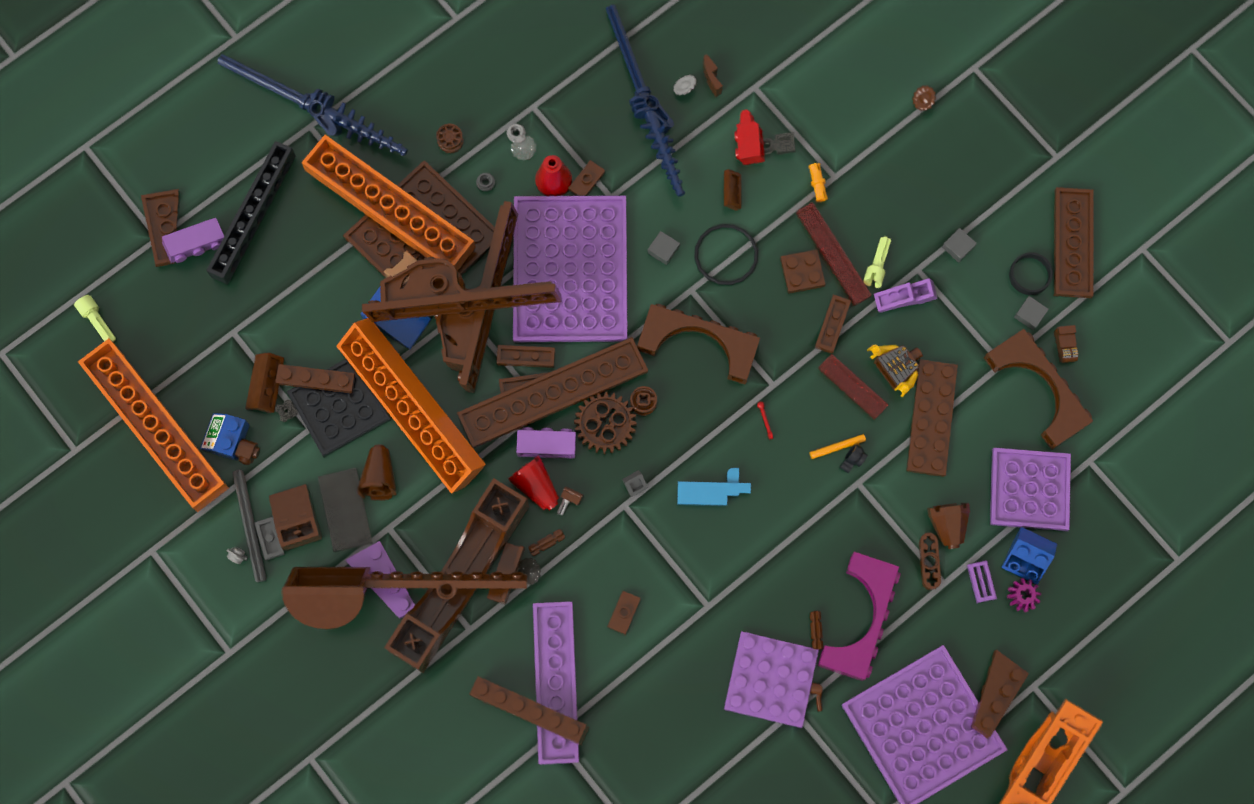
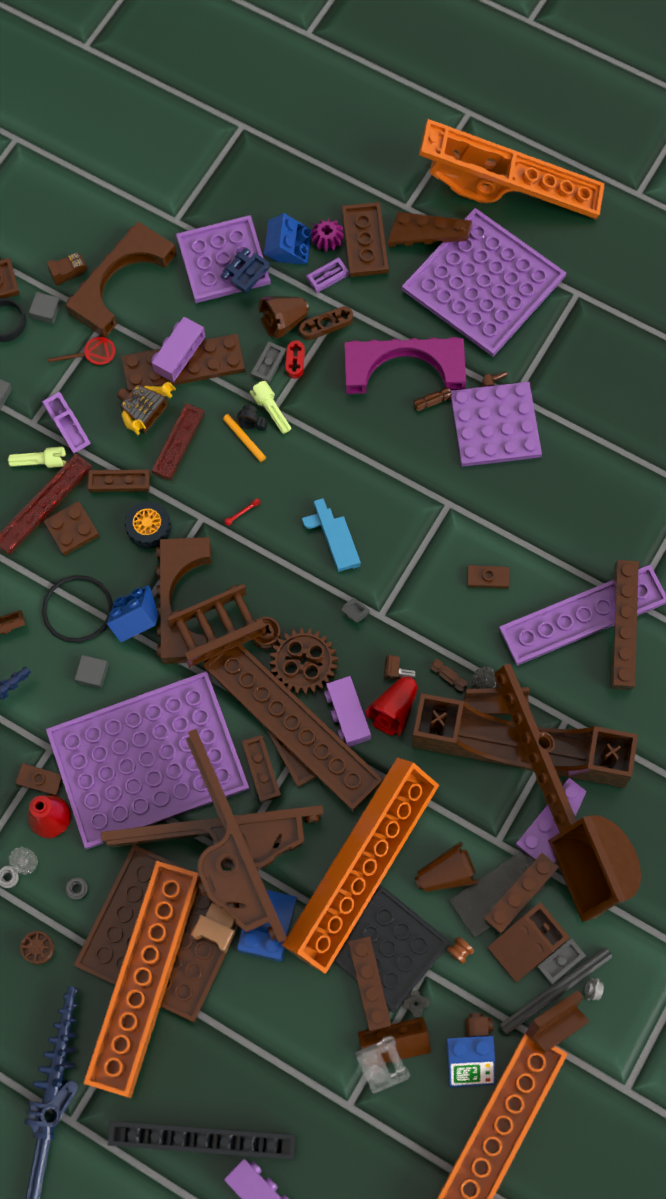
camera: 105 degrees left, 5 degrees down
(218, 511) = (557, 1023): none -> reddish brown panel
(247, 359) = (375, 1066): none -> clear plate
(311, 460) = (460, 950): none -> dark orange wheel
(335, 526) = (521, 893): none -> reddish brown plate
(646, 367) = (215, 645): none -> reddish brown fence
(699, 294) = (133, 613): none -> blue slope
(781, 335) = (147, 524): none -> black wheel
(872, 476) = (264, 397): none -> yellowish green piece
(902, 514) = (290, 359): none -> red beam
(905, 493) = (268, 362): none -> dark grey plate
(942, 412) = (178, 349): none -> medium lavender brick
(971, 347) = (97, 351): none -> piece
(1002, 504) = (249, 273): none -> dark blue plate
(1008, 630) = (365, 239): none -> reddish brown plate

